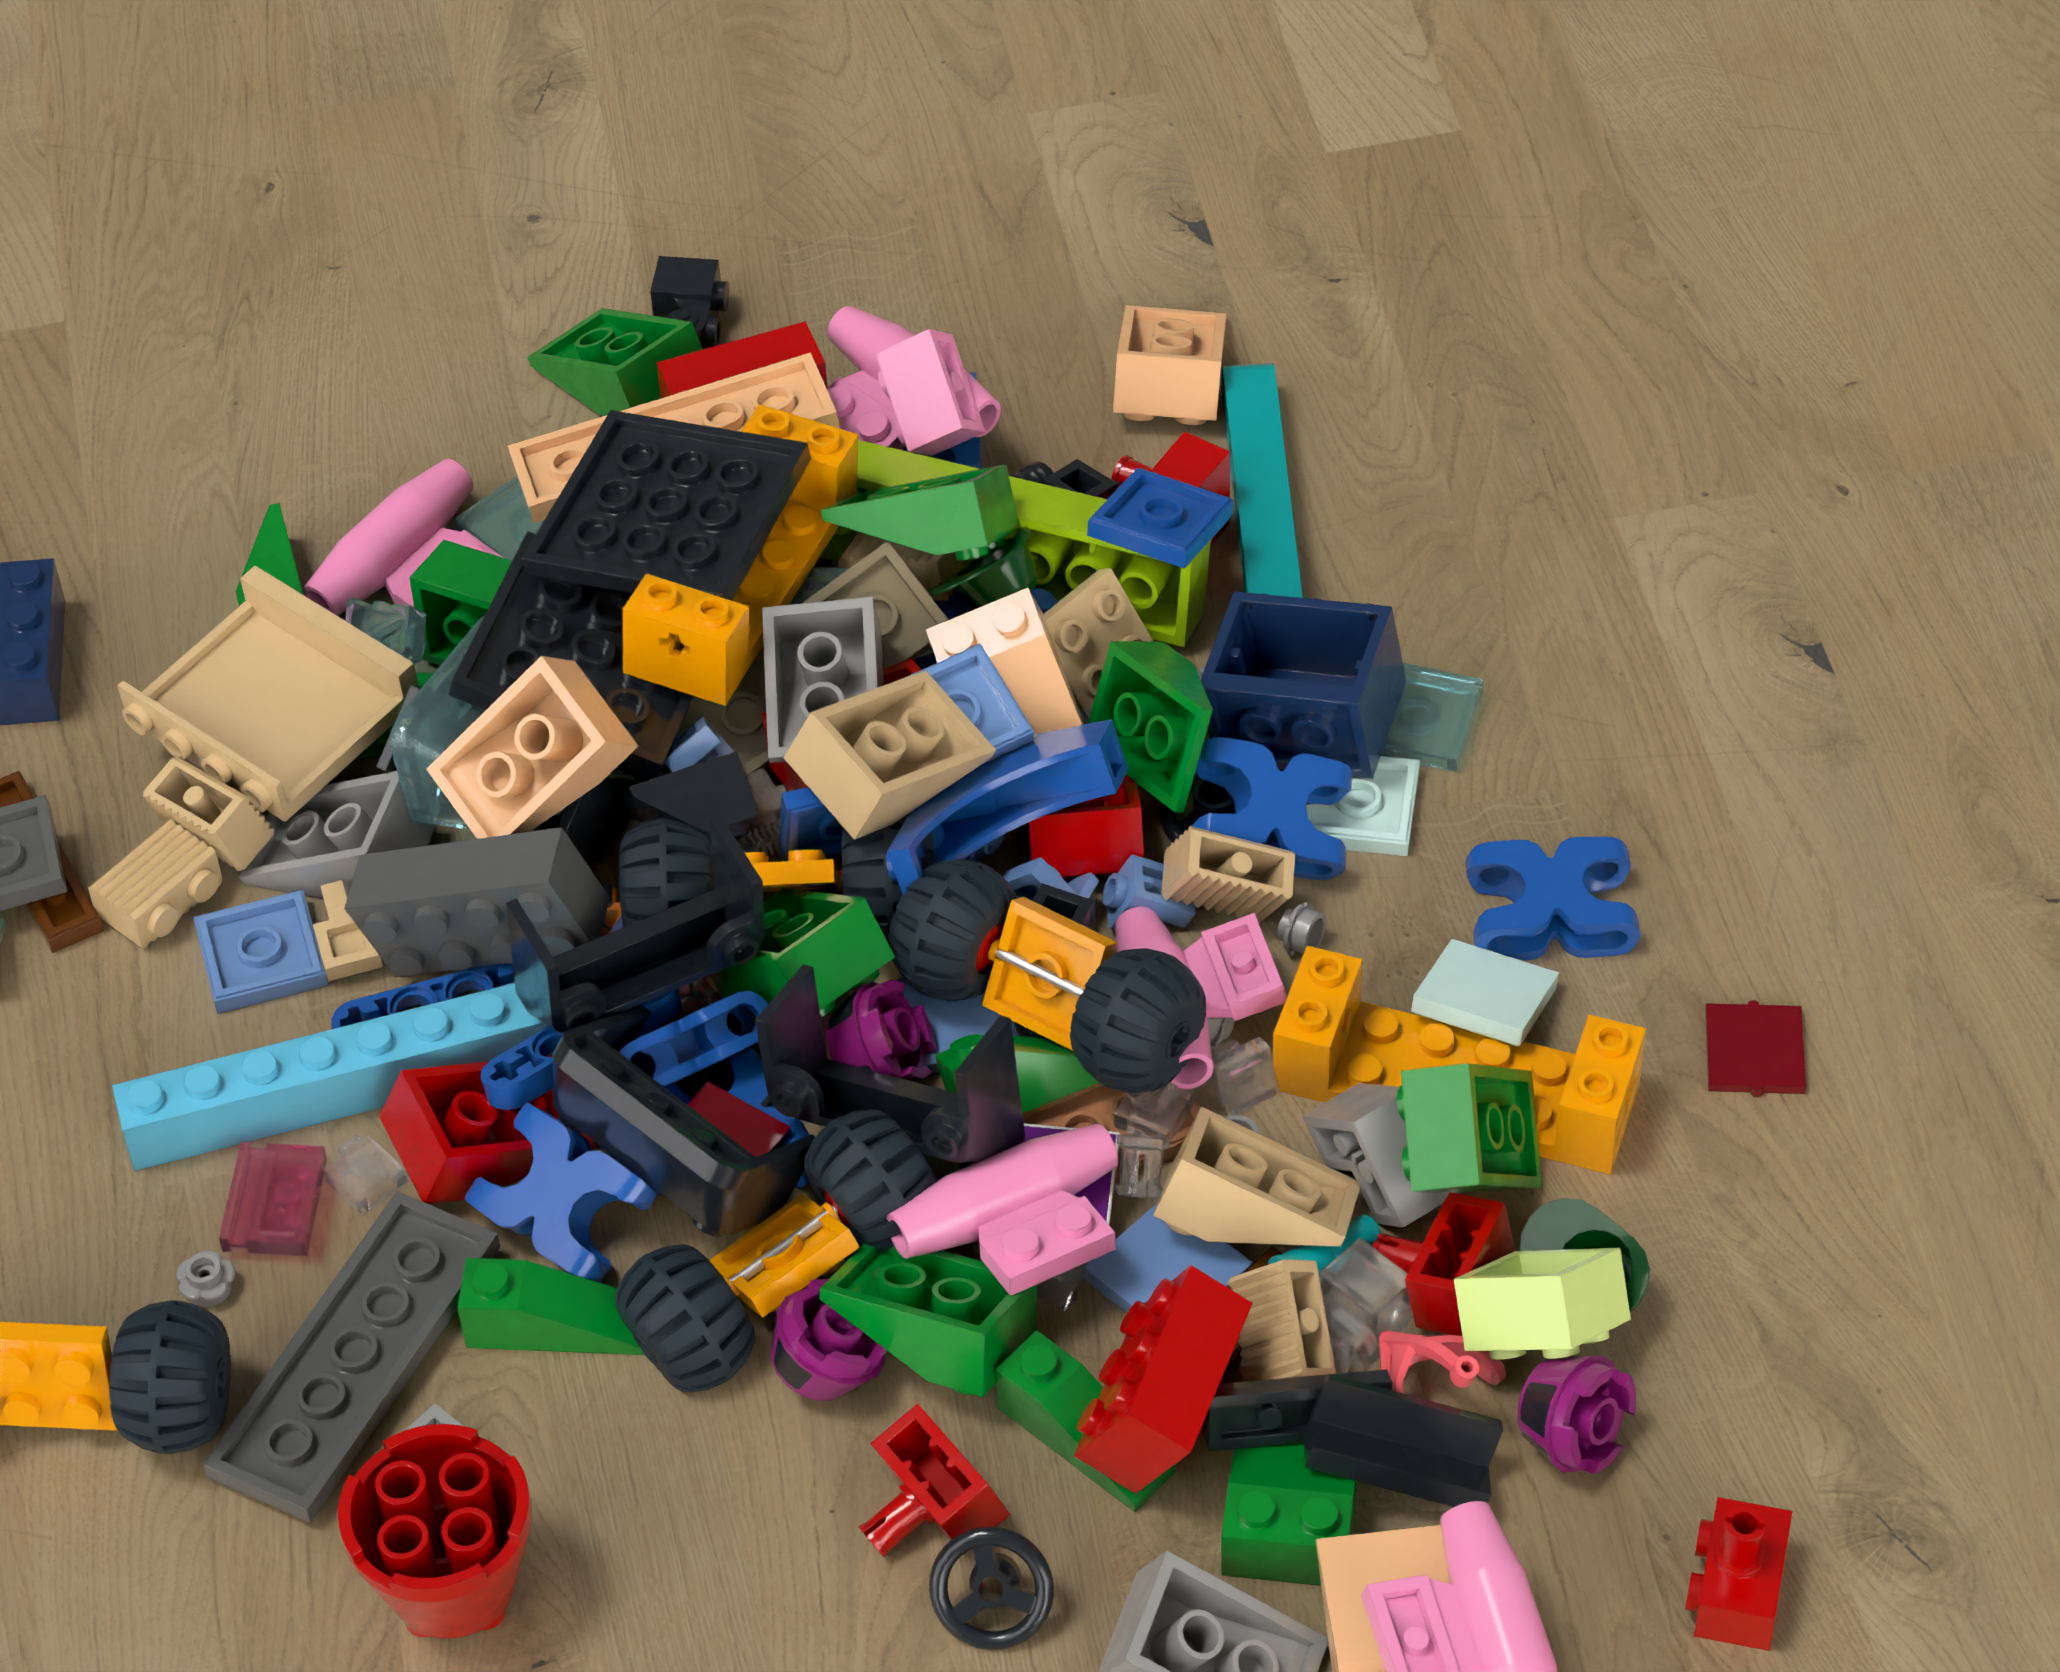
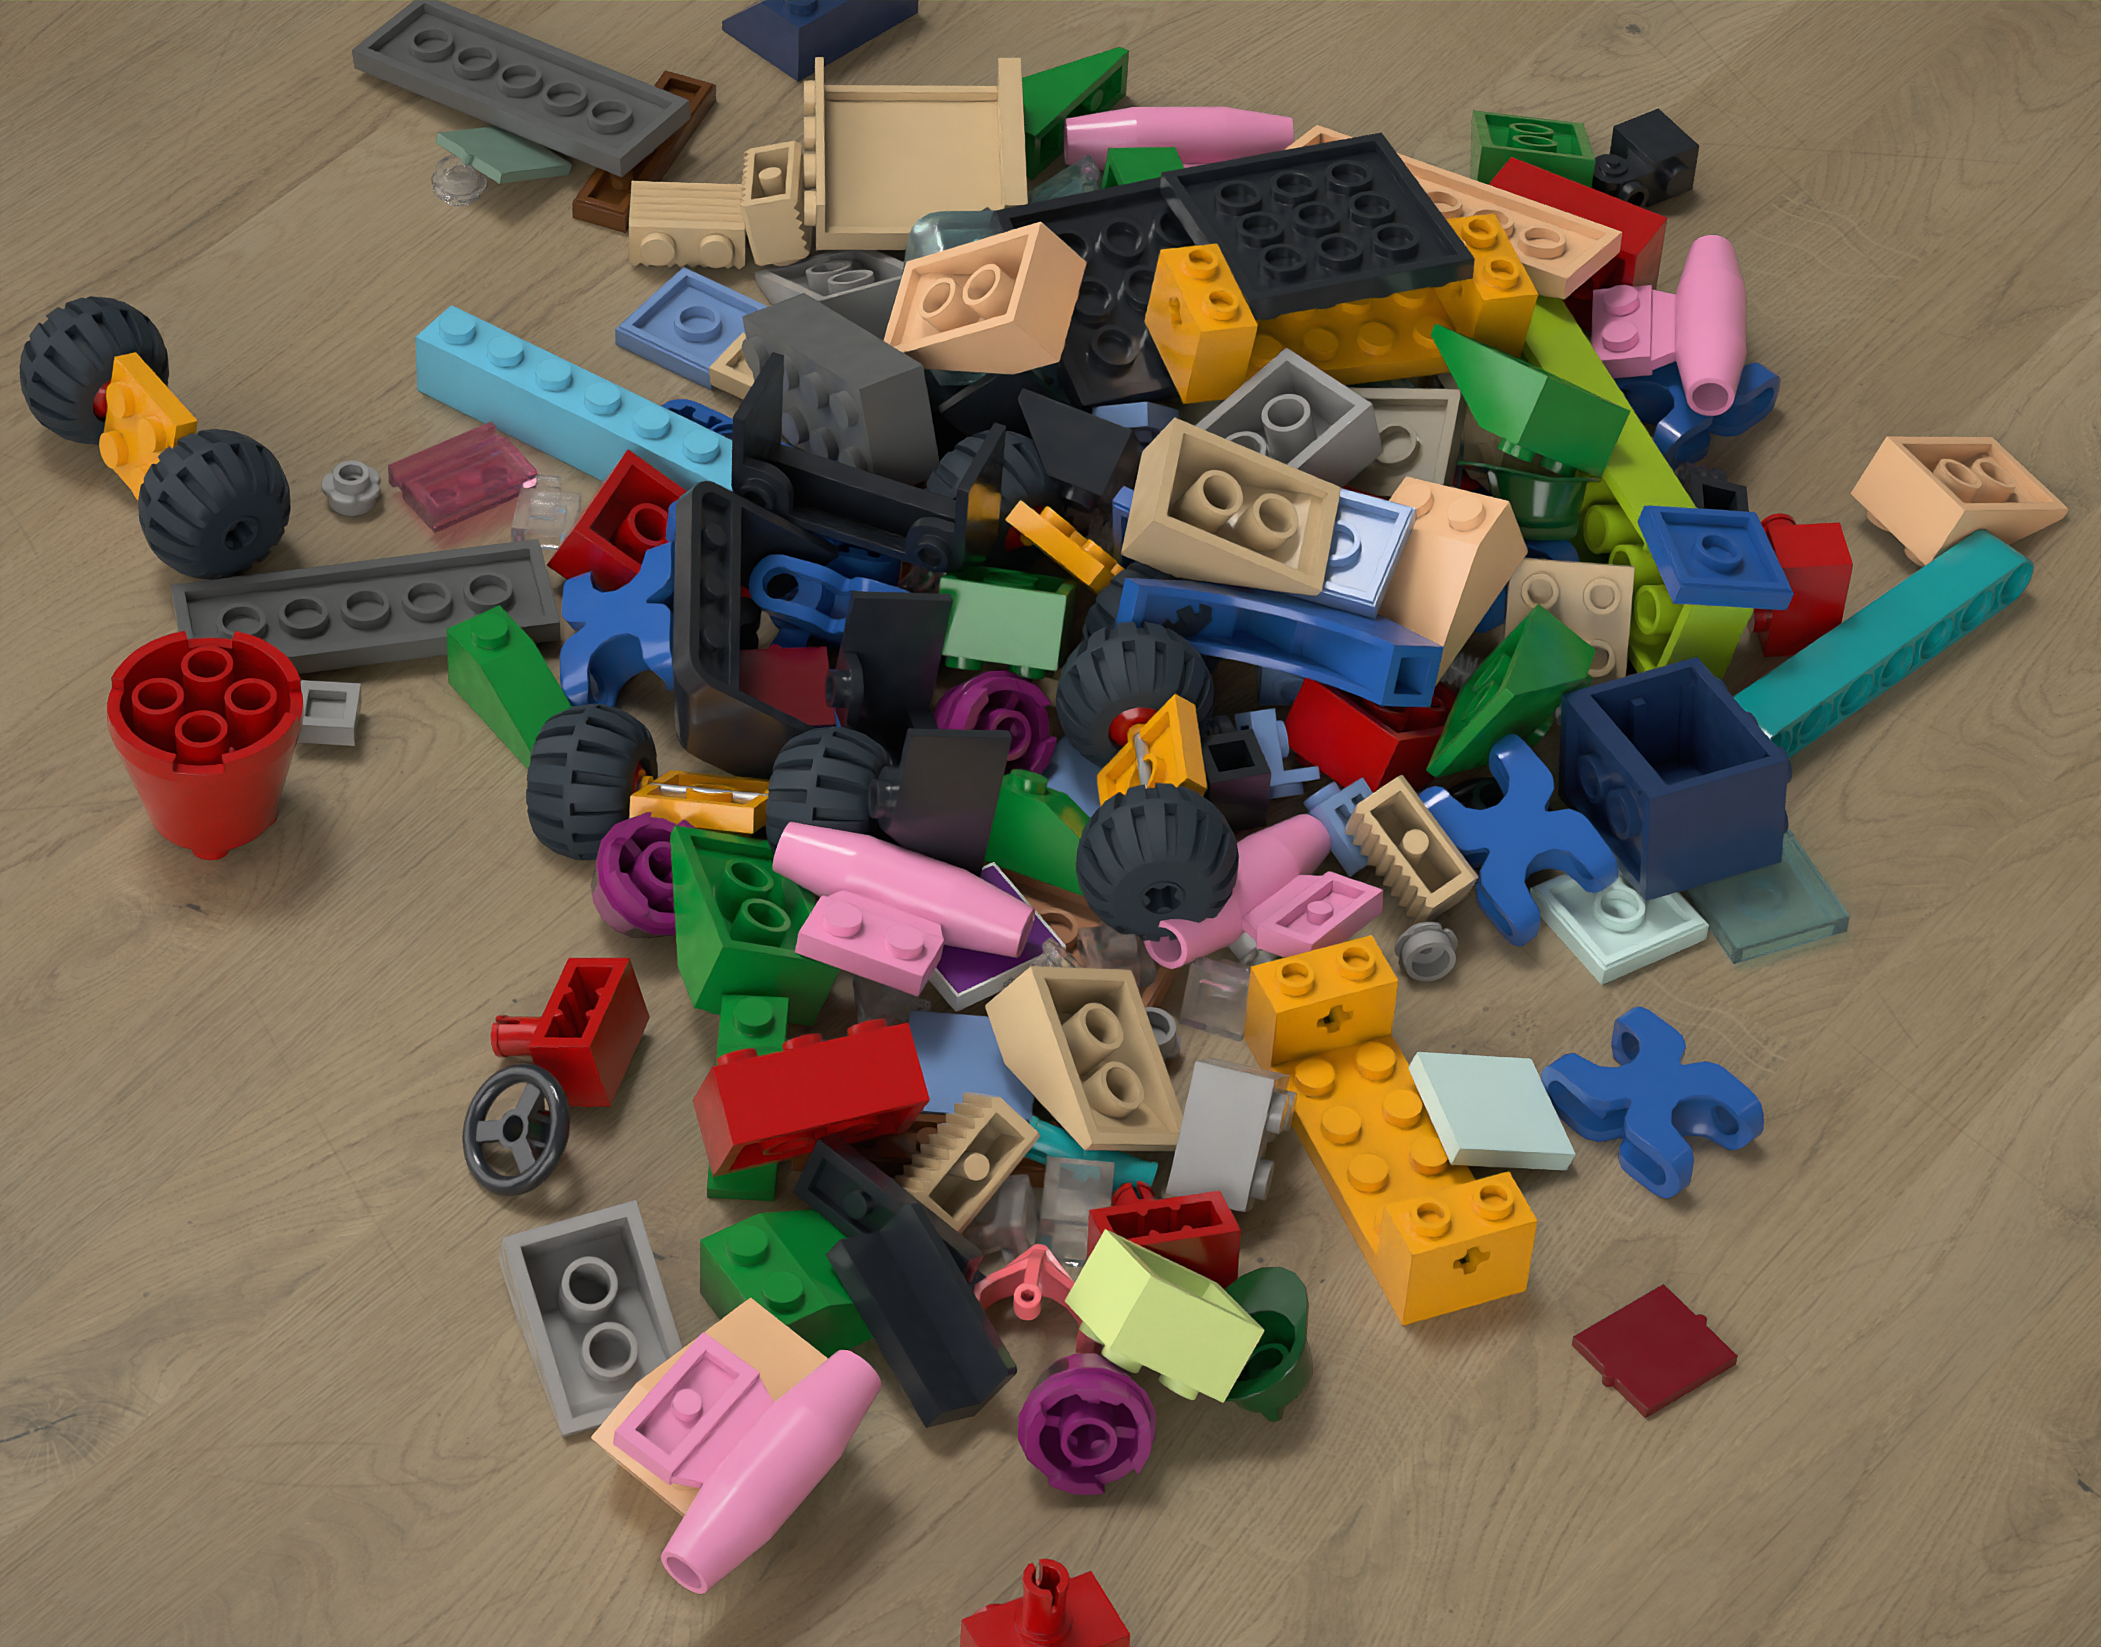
camera: 45 degrees right, 5 degrees down
(929, 393) = (1673, 332): bright pink brick -> none
(1469, 1129) = (1294, 1161): green slope -> none

